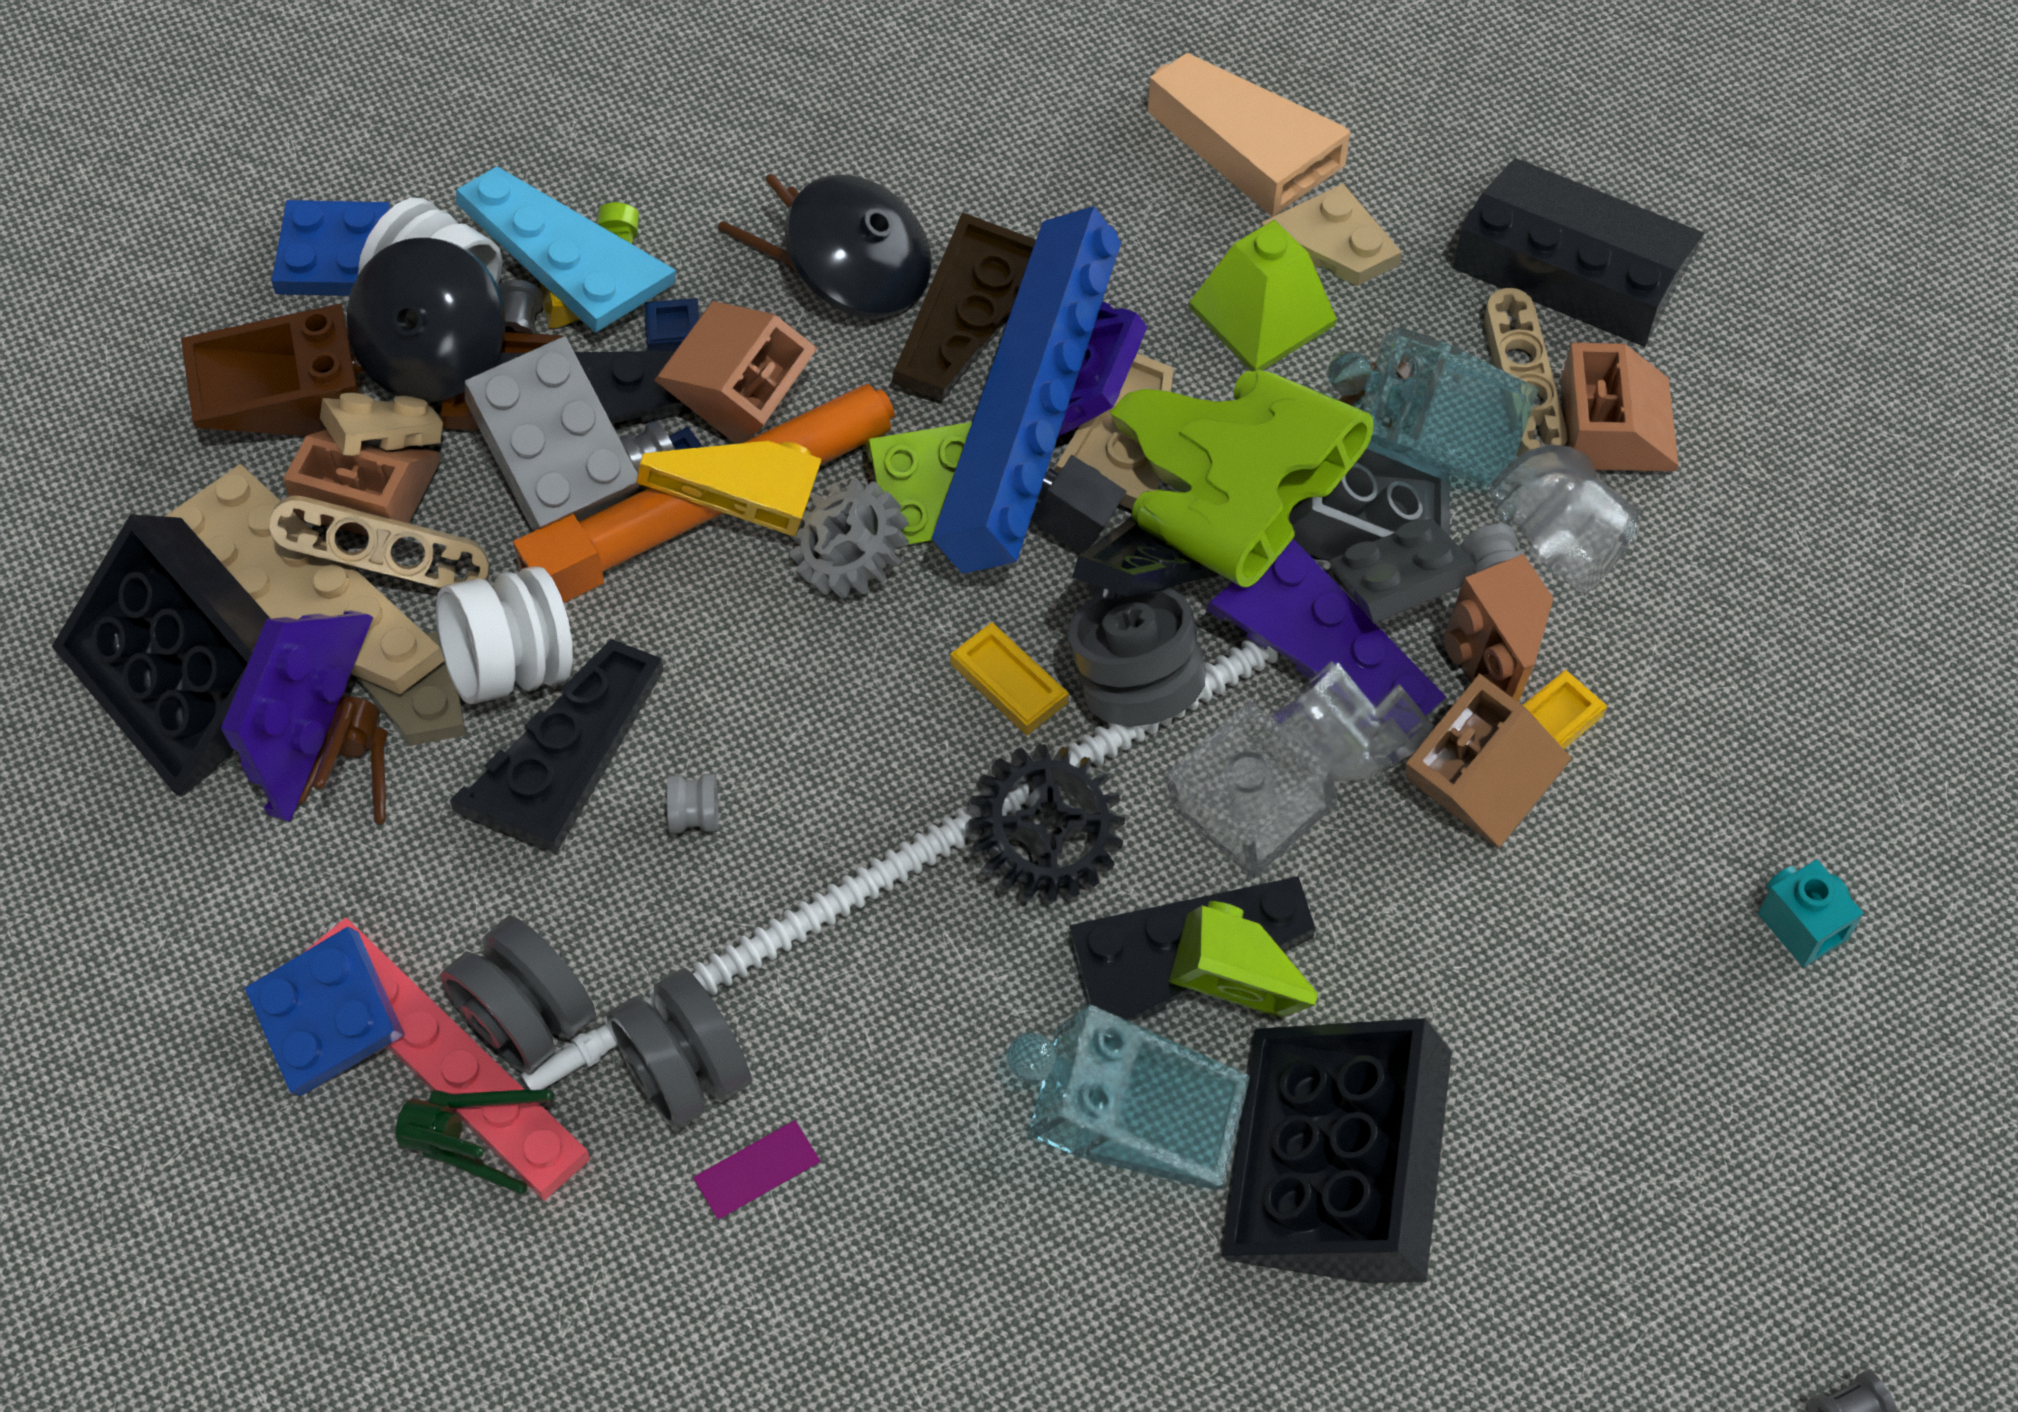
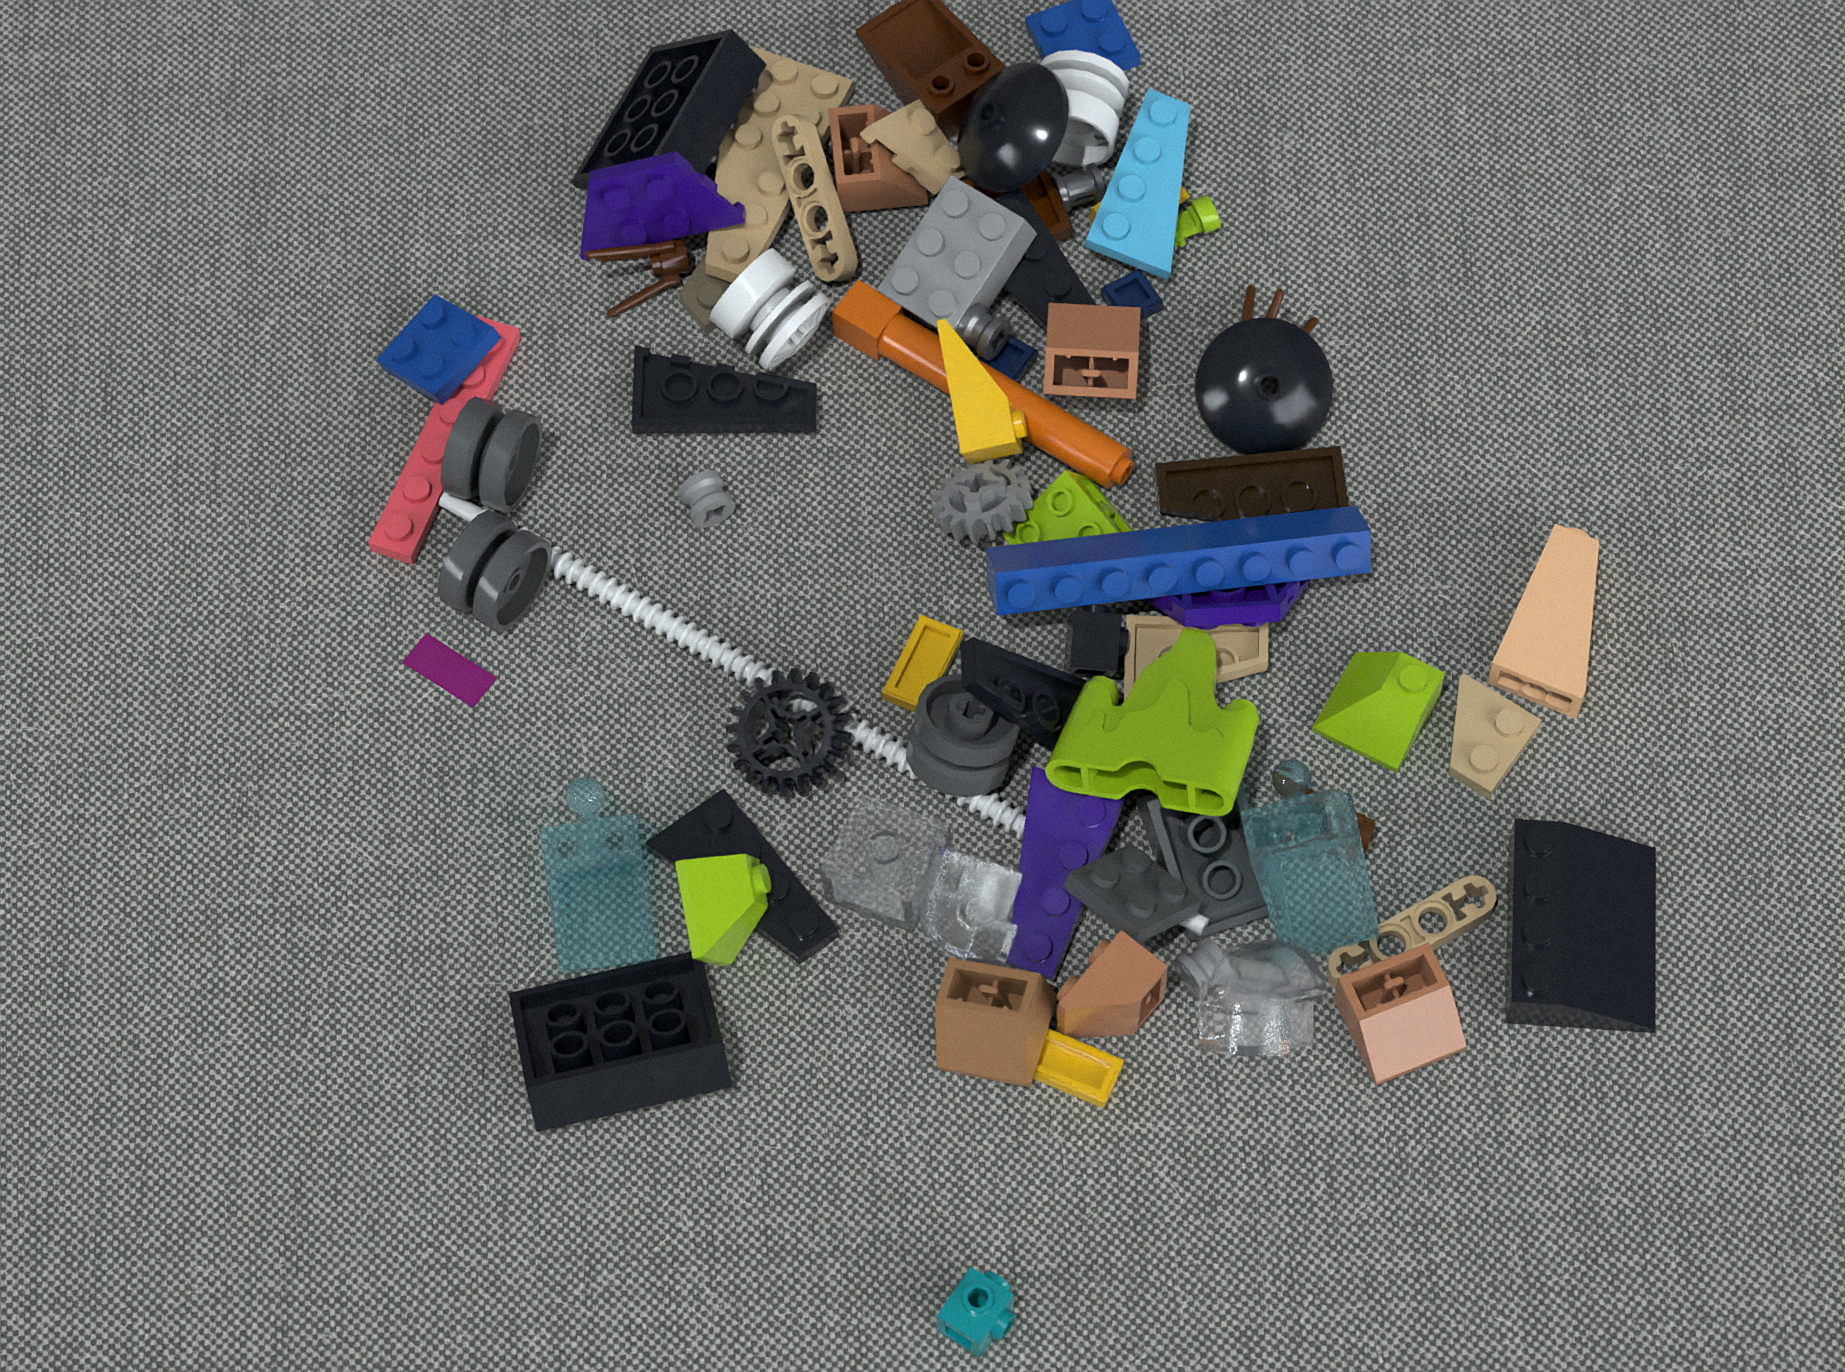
camera: 70 degrees right, 5 degrees up
(436, 1130) = (382, 454): dark green plant -> none

